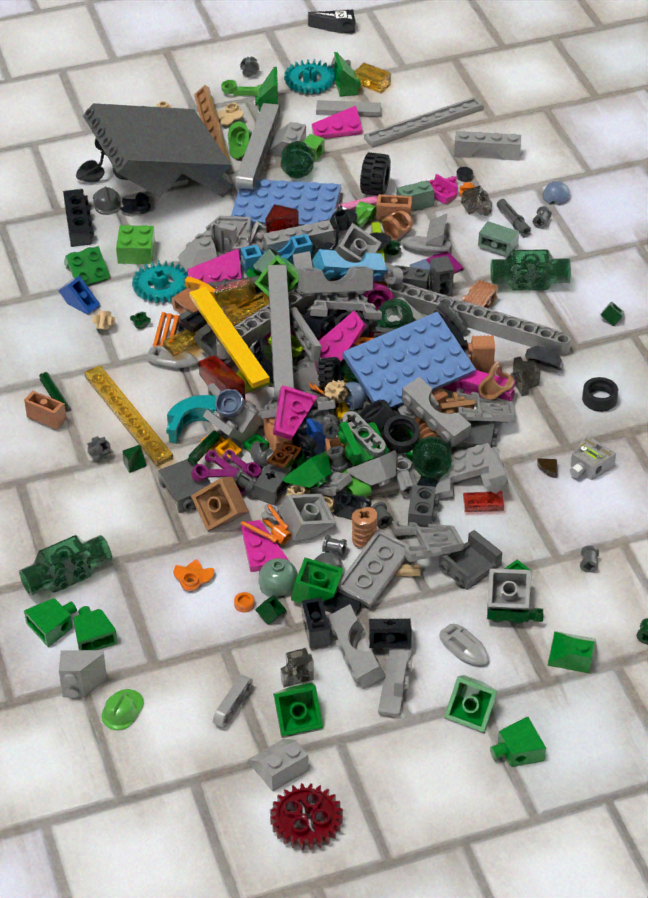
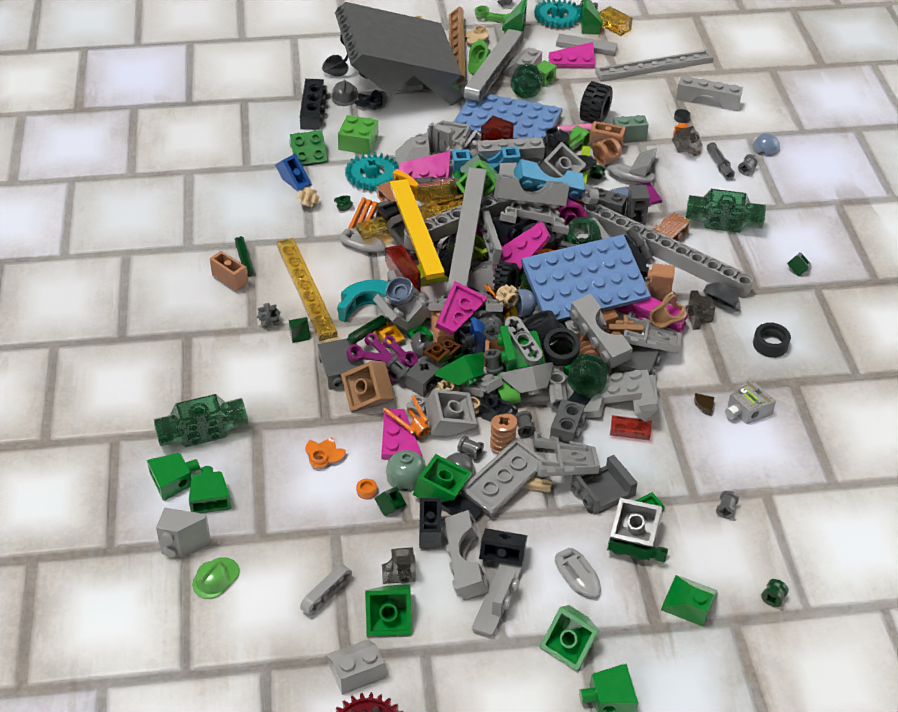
camera: 10 degrees right, 0 degrees up
(444, 188) = (659, 126): dark pink slope -> none
(498, 238) = (700, 177): sand green brick -> none

